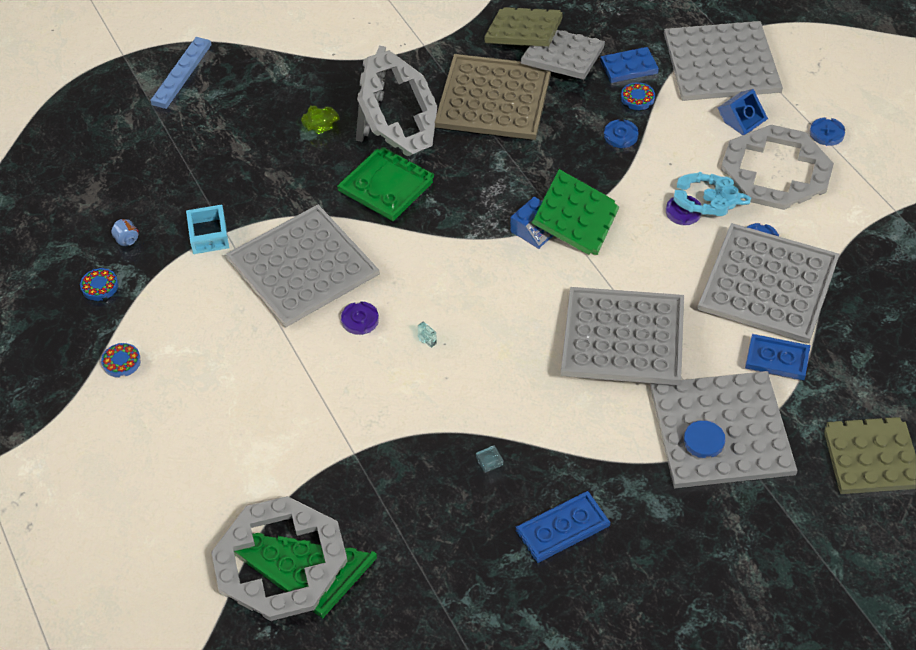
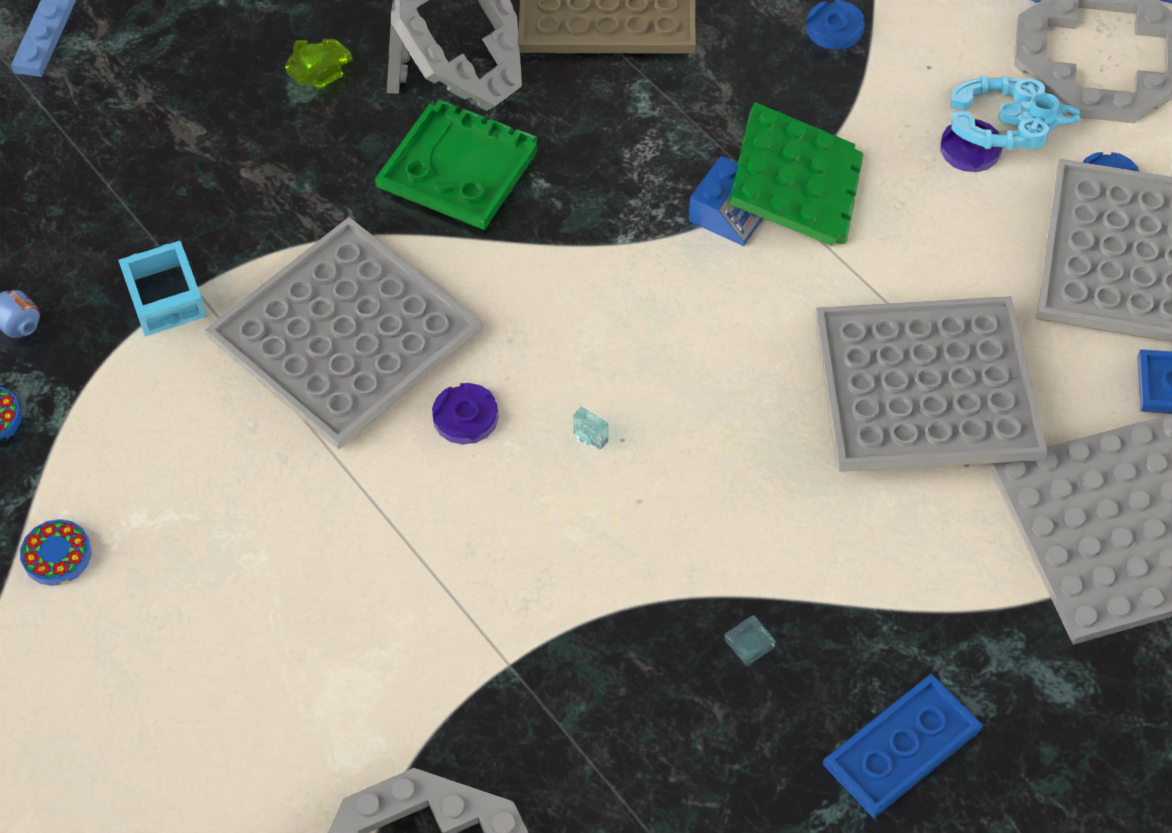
camera: 10 degrees left, 5 degrees up
(704, 439) = (1109, 551): blue tile -> none

